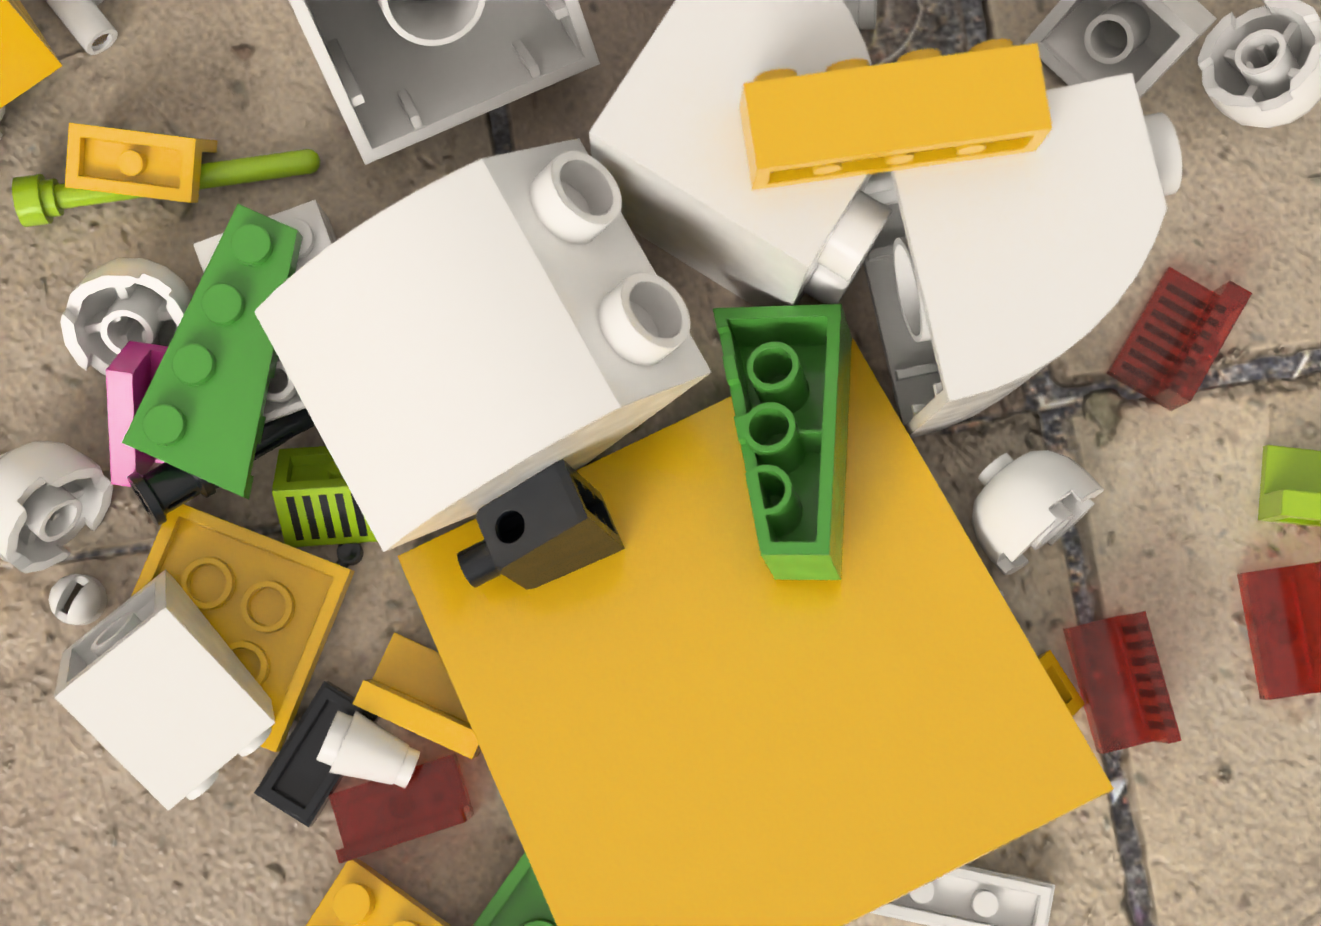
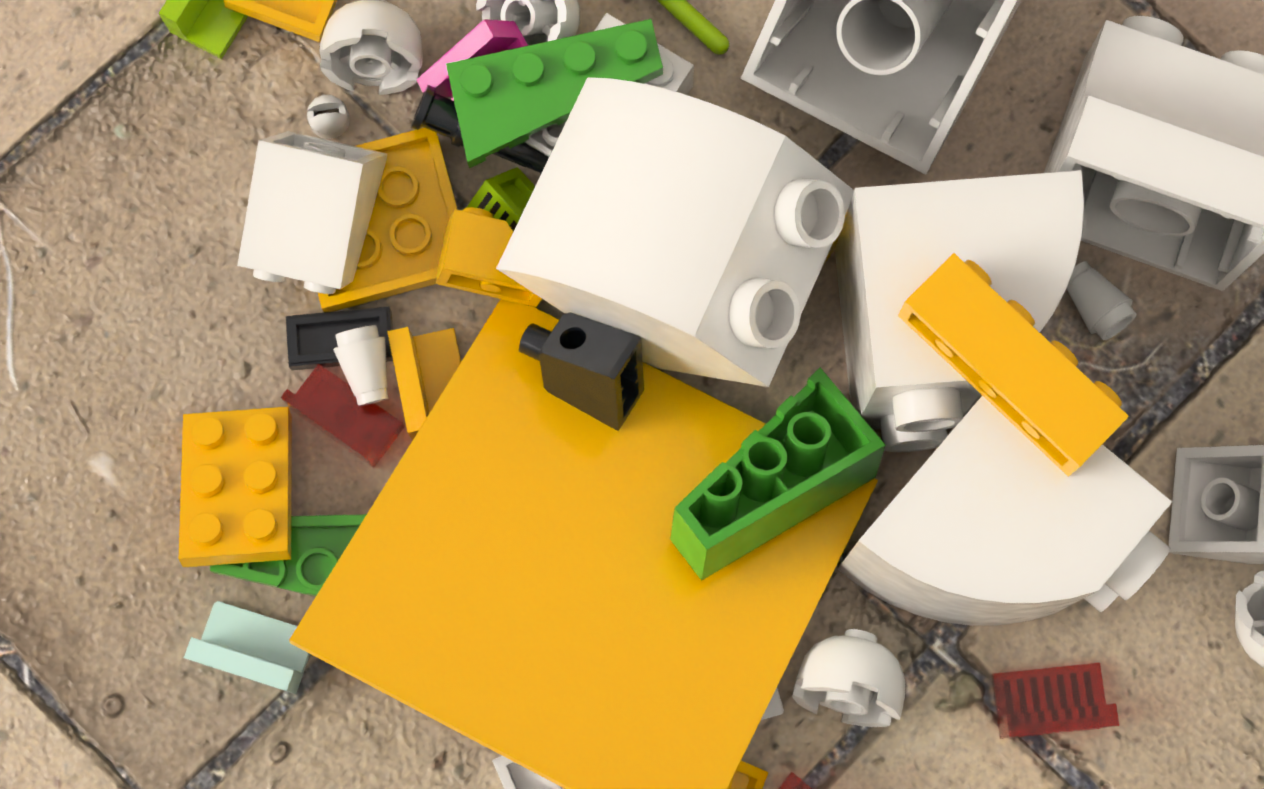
camera: 60 degrees right, 5 degrees down
(341, 556) = (471, 254): none -> yellow slope

